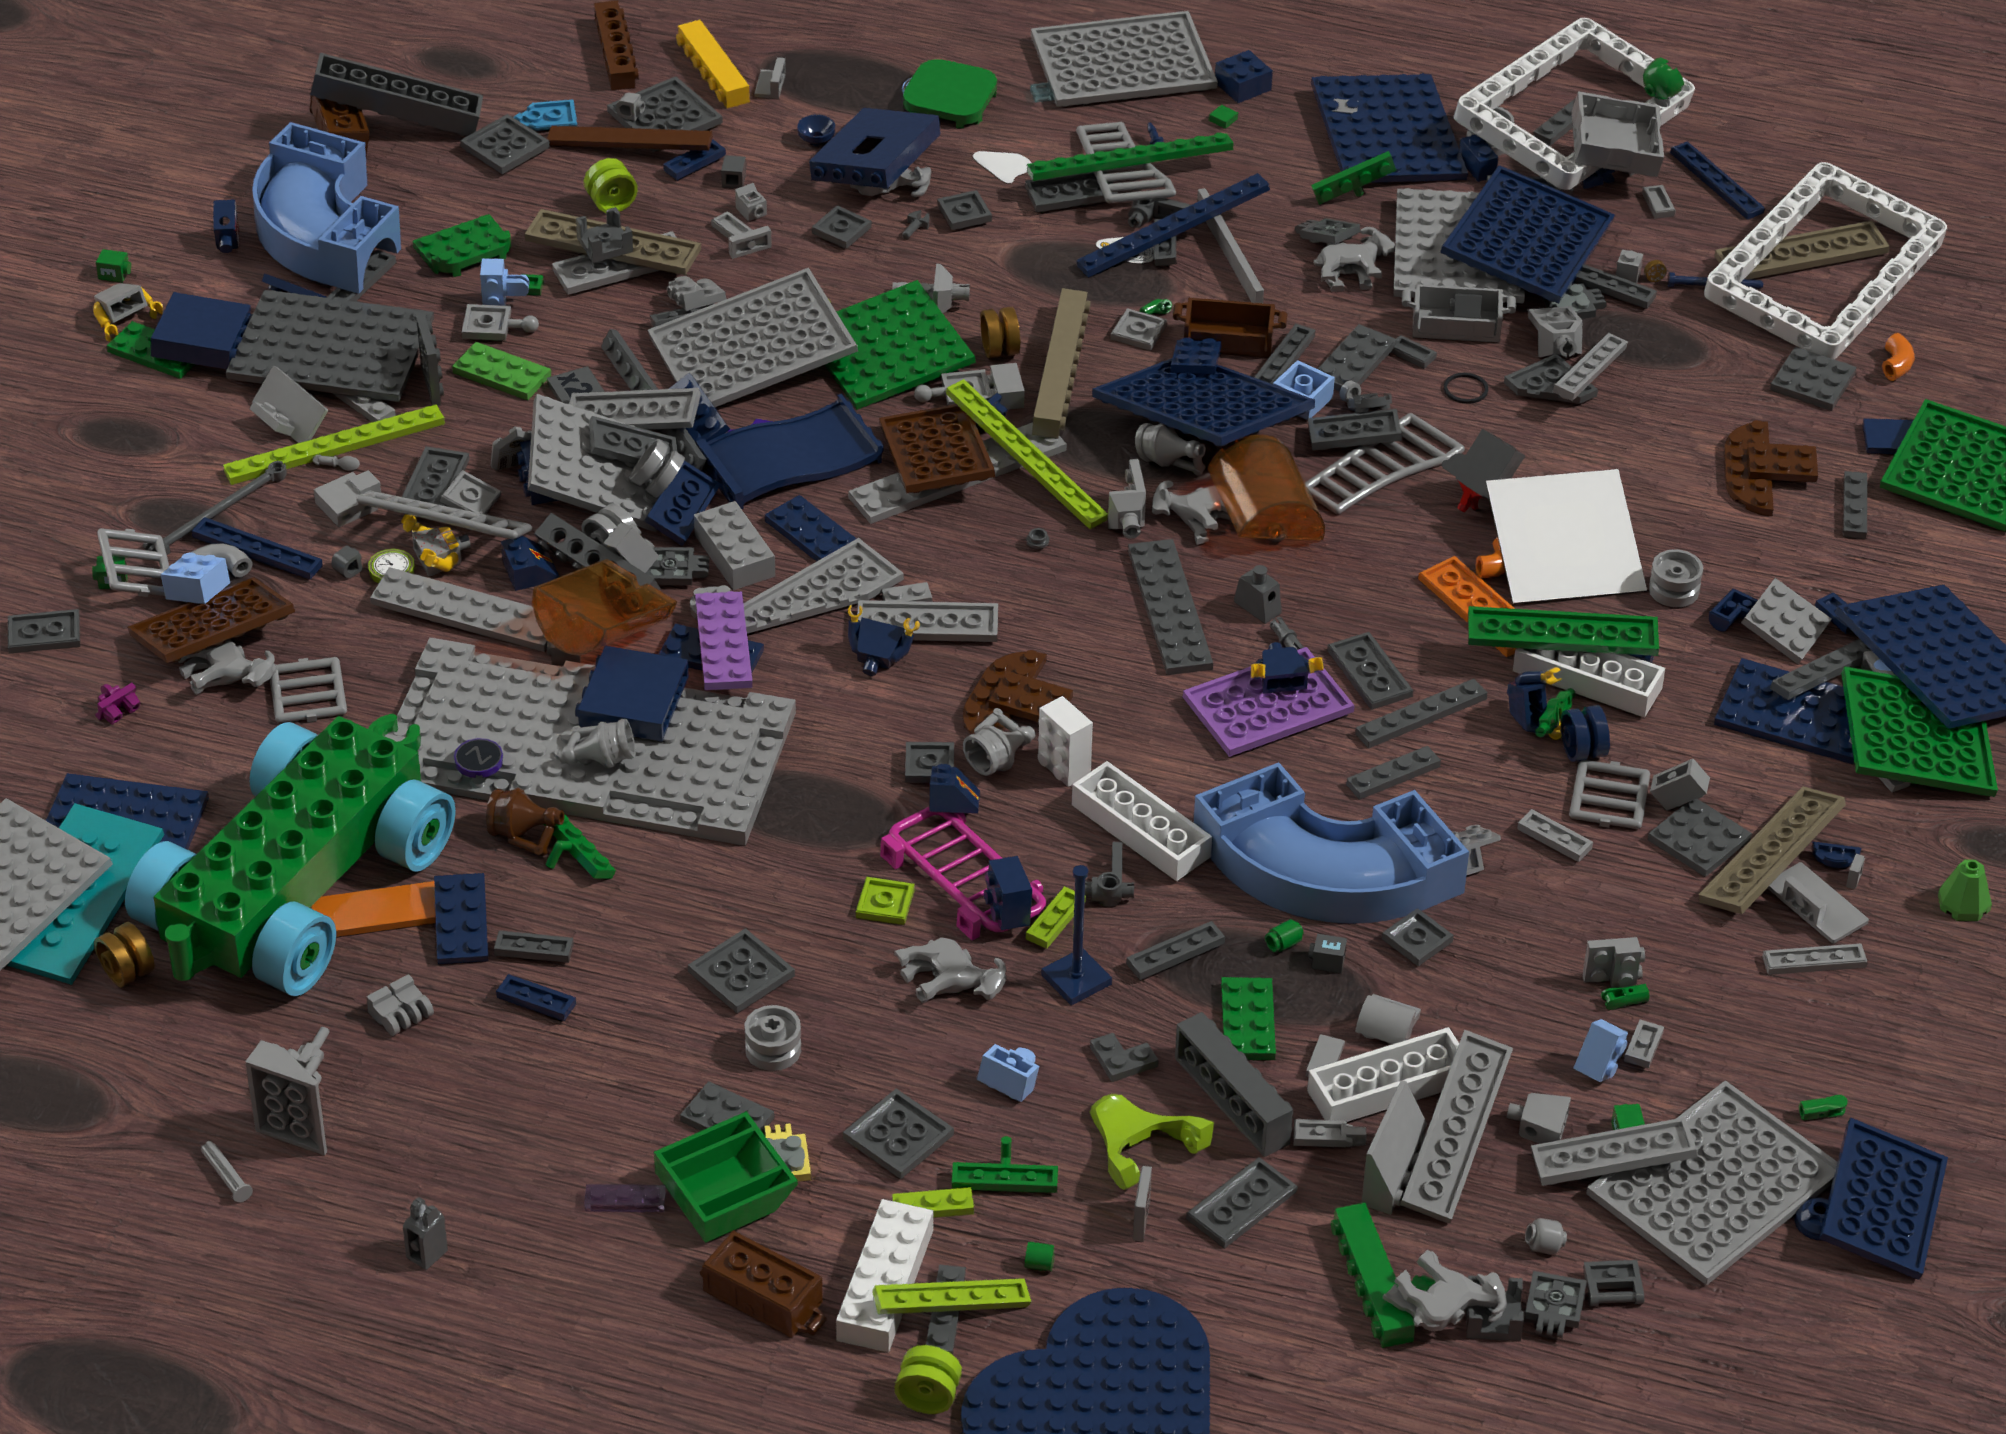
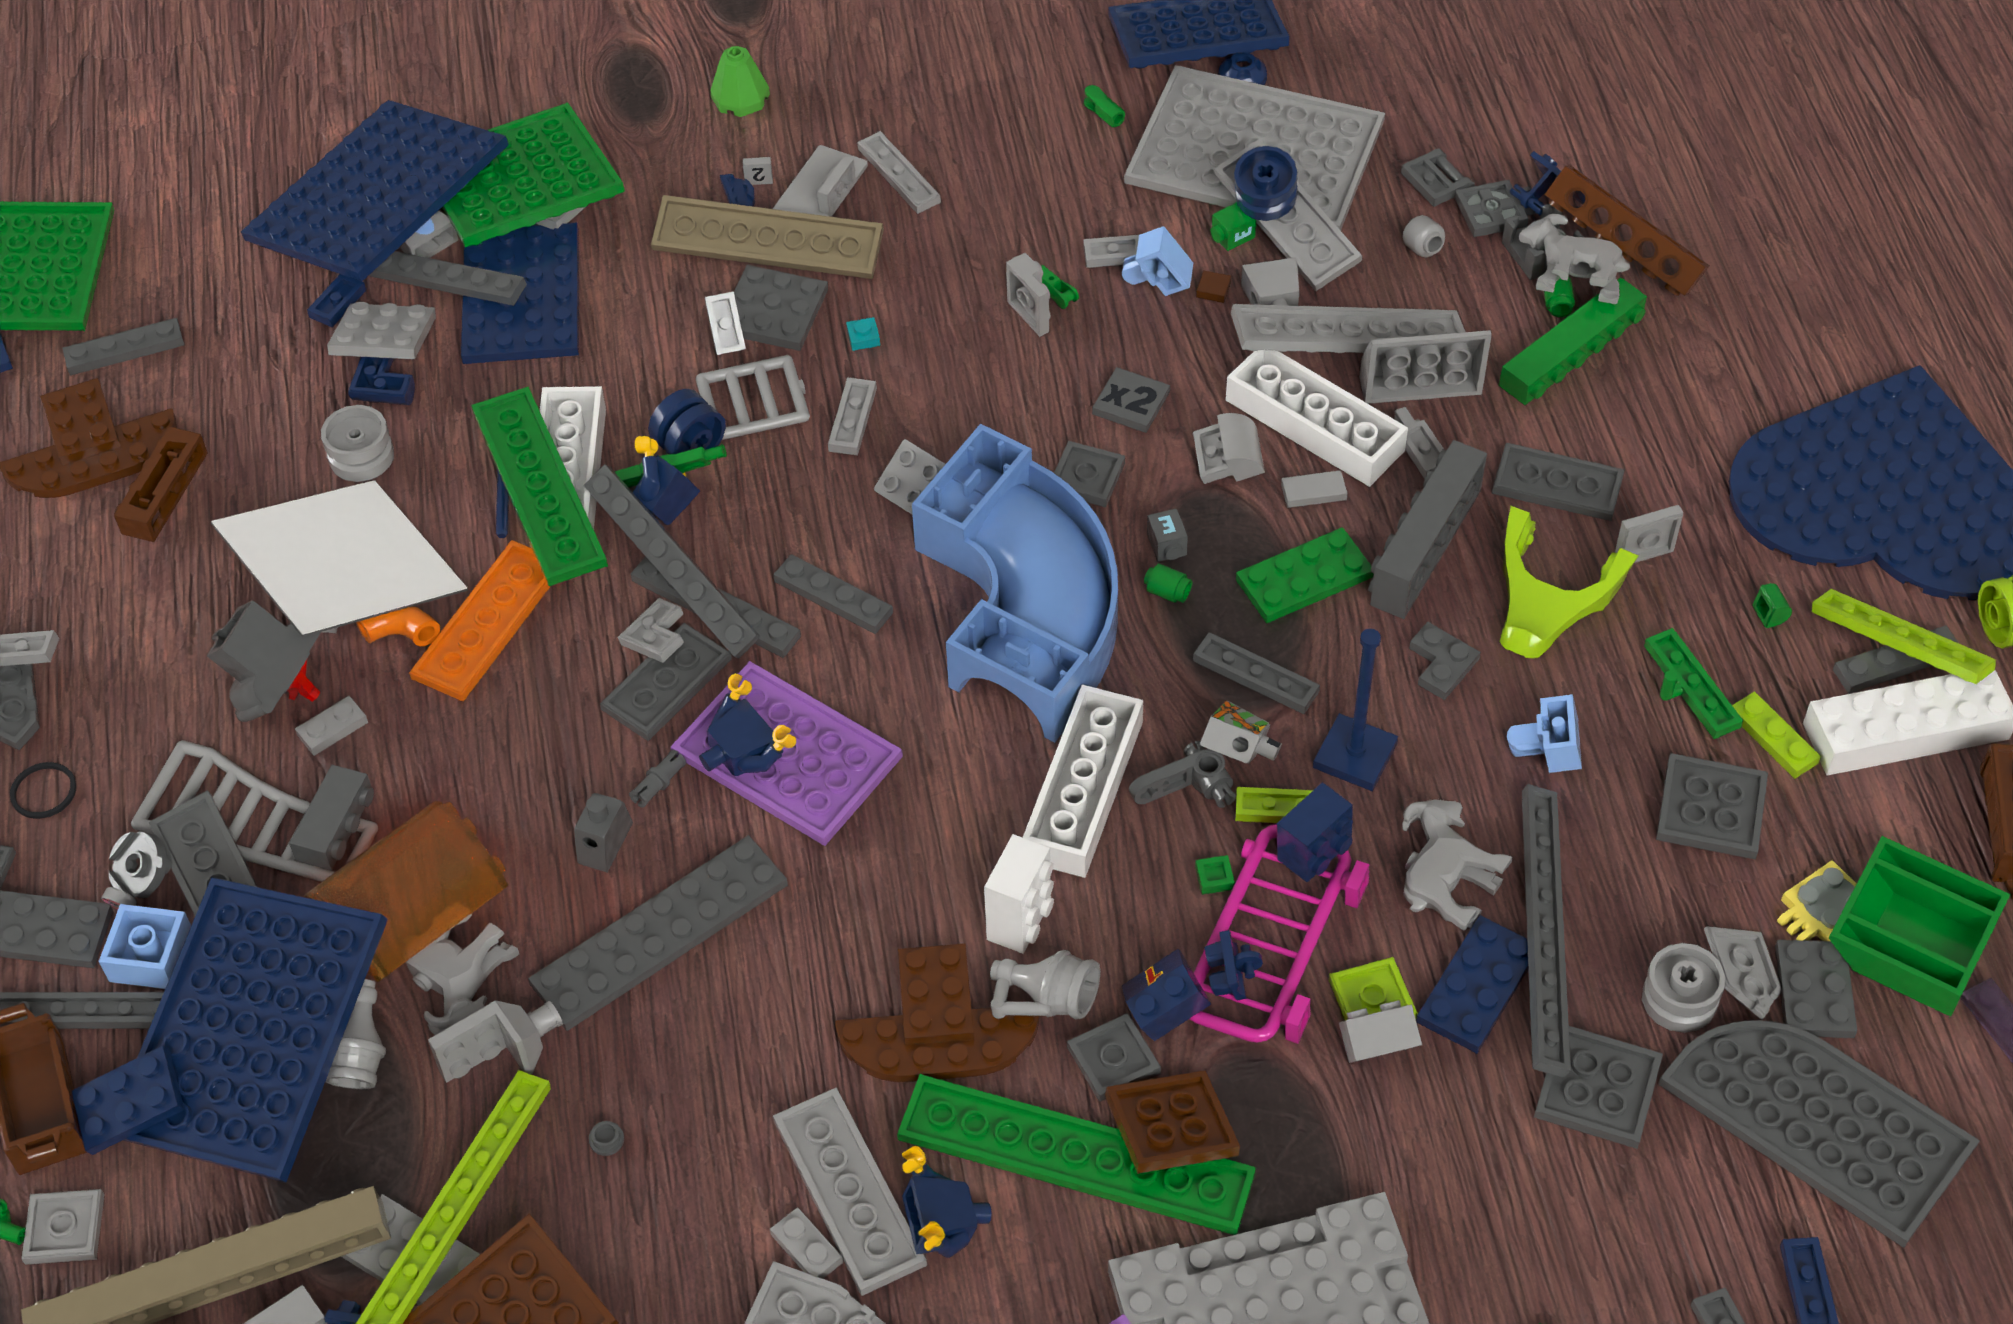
camera: 115 degrees left, 10 degrees up
(635, 1064) = (1824, 1120): none -> dark grey plate
(766, 1079) = (1746, 967): none -> light grey tile
(851, 879) = (1379, 1032): none -> light grey brick
(856, 954) = (1476, 985): none -> dark blue plate
(862, 760) = (1172, 1121): none -> reddish brown plate
(867, 991) = (1545, 932): none -> dark grey plate
(876, 722) = (1070, 1154): none -> green plate
(947, 827) = (1227, 953): none -> dark blue hips
(1032, 864) = (1214, 874): none -> green tile
(1124, 907) = (1239, 734): none -> light grey torso
(1348, 483) = (332, 817): none -> dark grey brick
(1414, 669) = (650, 631): none -> light grey tile
(1434, 514) = (331, 725): none -> light grey plate
(1451, 687) = (672, 561): none -> dark grey plate
(1457, 1343) = (1561, 197): none -> reddish brown brick
(1479, 994) = (1131, 399): none -> dark grey tile
(1552, 1343) = (1550, 172): none -> dark blue plate
(1572, 1088) = (1213, 286): none -> reddish brown tile
(1637, 1125) = (1266, 183): none -> dark blue wheel
(1641, 875) = (863, 333): none -> teal plate
(1699, 486) = (160, 484): none -> reddish brown brick

